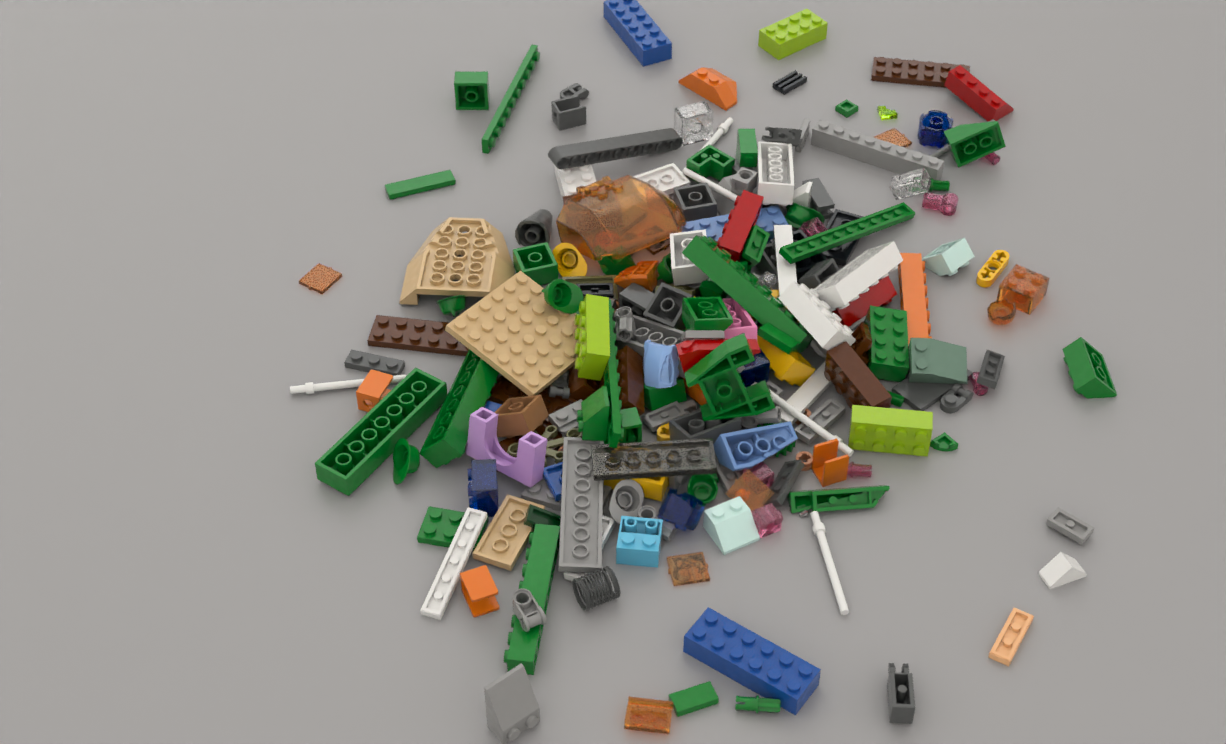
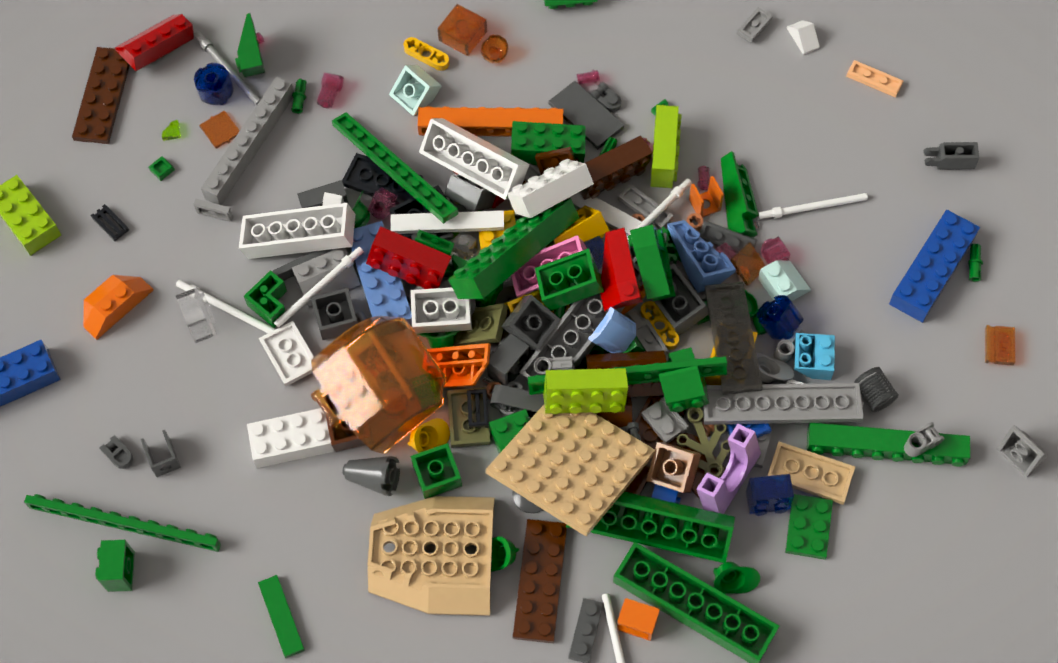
camera: 90 degrees left, 20 degrees up
(453, 563) = (857, 517): white tile -> none
(479, 591) = (889, 490): orange piece -> none
(540, 516) = (798, 439): dark green tile -> none
(563, 296) = (528, 424): green piece -> none
(615, 148) = (248, 393): dark grey beam -> none
(688, 568) = (831, 319): clear orange piece -> none
(693, 698) = (974, 312): green tile -> none
(702, 334) = (609, 277): light grey tile -> none
(744, 180) = (324, 263): light grey brick -> none
(746, 148) = (254, 259): green slope -> none
(777, 338) = (575, 224): green tile -> none
(783, 135) = (223, 226): dark grey hinge -> none
(910, 183) = (309, 110): clear brick -> none
(937, 362) = (576, 104): sand green slope -> none
(990, 369) = (572, 64): dark grey tile -> none

